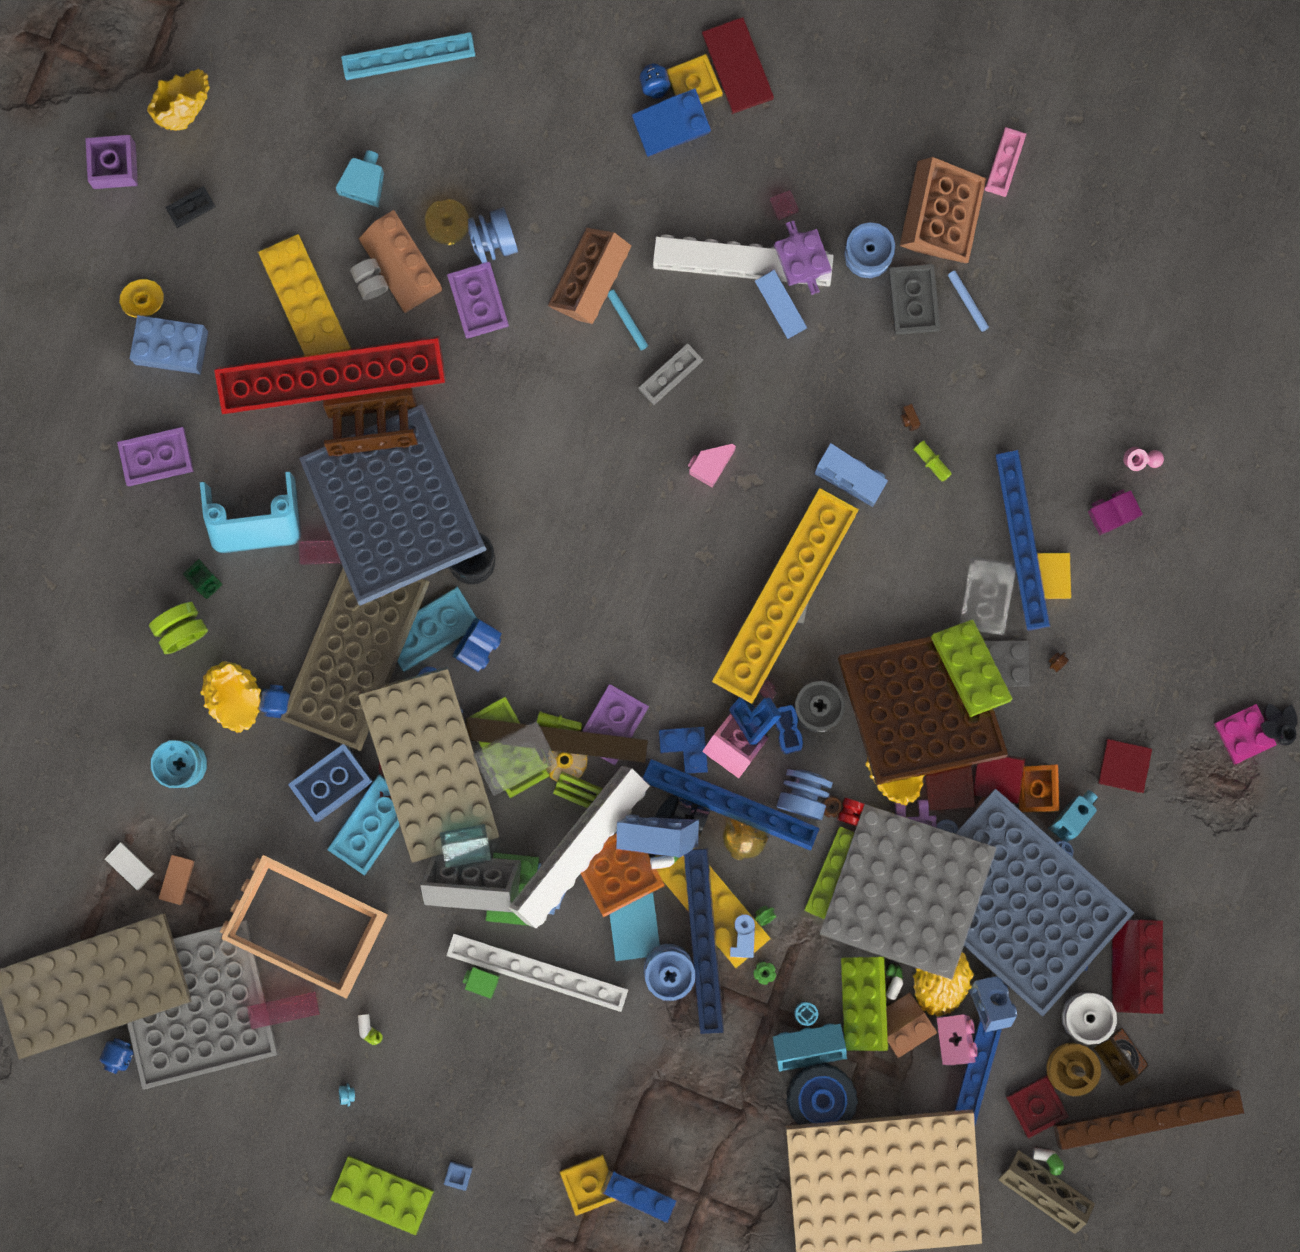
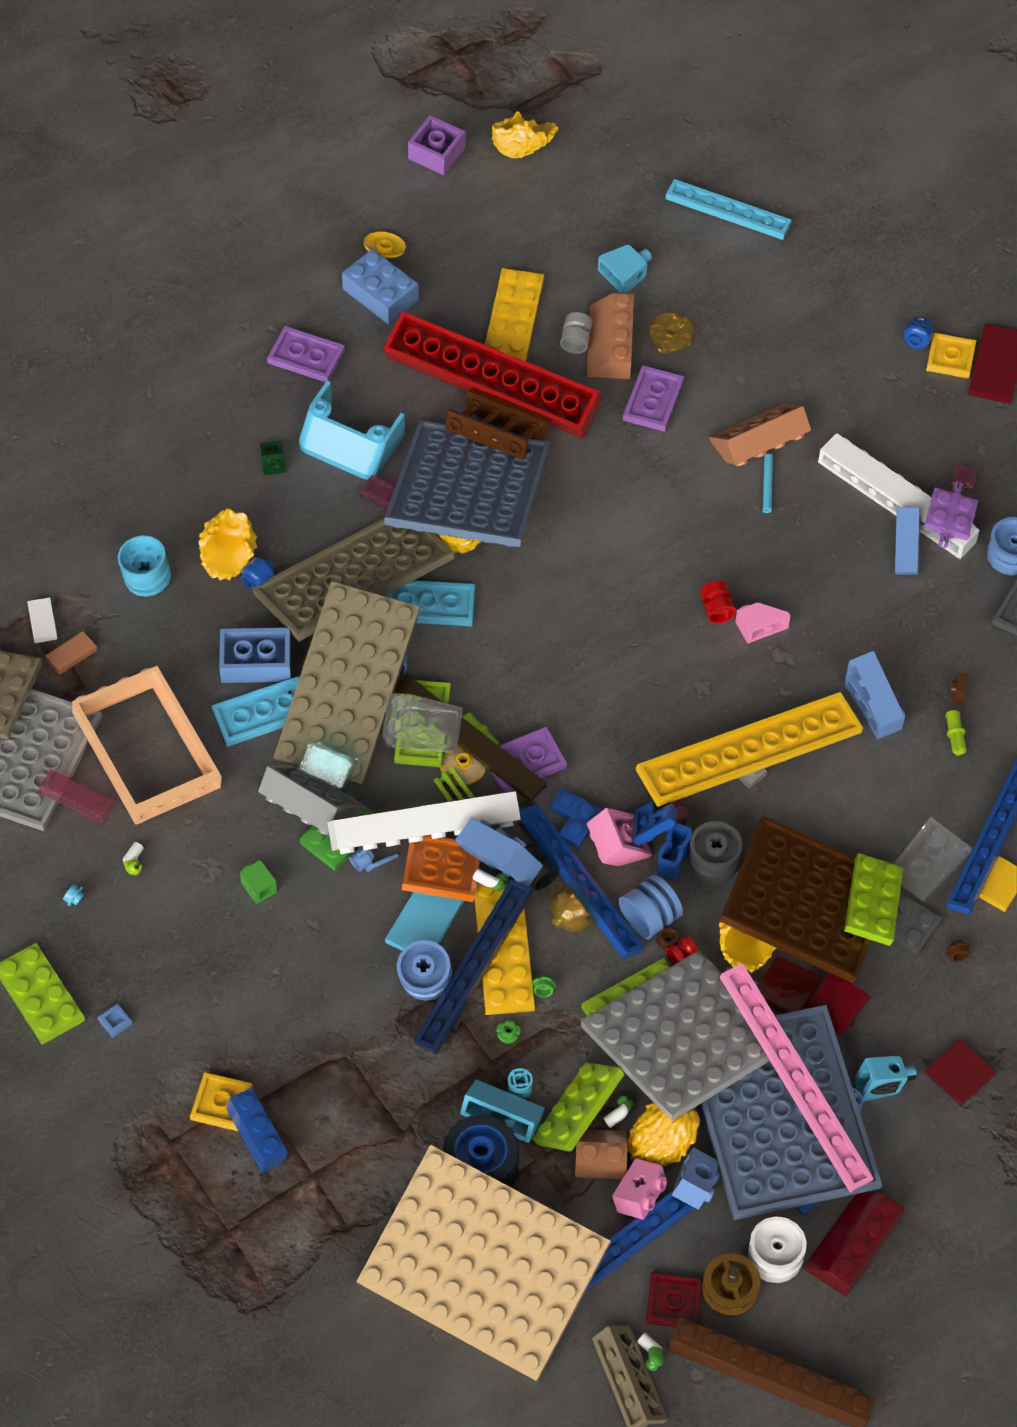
camera: 30 degrees right, 25 degrees down
(178, 627) = (225, 472): lime wheel -> none
(190, 207) = (473, 210): black plate -> none
(477, 645) = (457, 631): blue brick -> none
(480, 570) = (502, 568): black wheel -> none
(492, 235) = (700, 356): medium blue wheel -> none
(537, 972) = (312, 906): white plate -> none
(666, 469) = (717, 602): none -> red wheel
(670, 374) = (774, 539): light grey plate -> none
(671, 122) = (911, 367): blue slope -> none
(745, 931) = (511, 985): light blue leg -> none
(1021, 879) = (796, 1078): none -> bright pink plate
(1040, 789) = (867, 1037): orange slope -> none
(1121, 1057) = (783, 1307): dark brown panel -> none

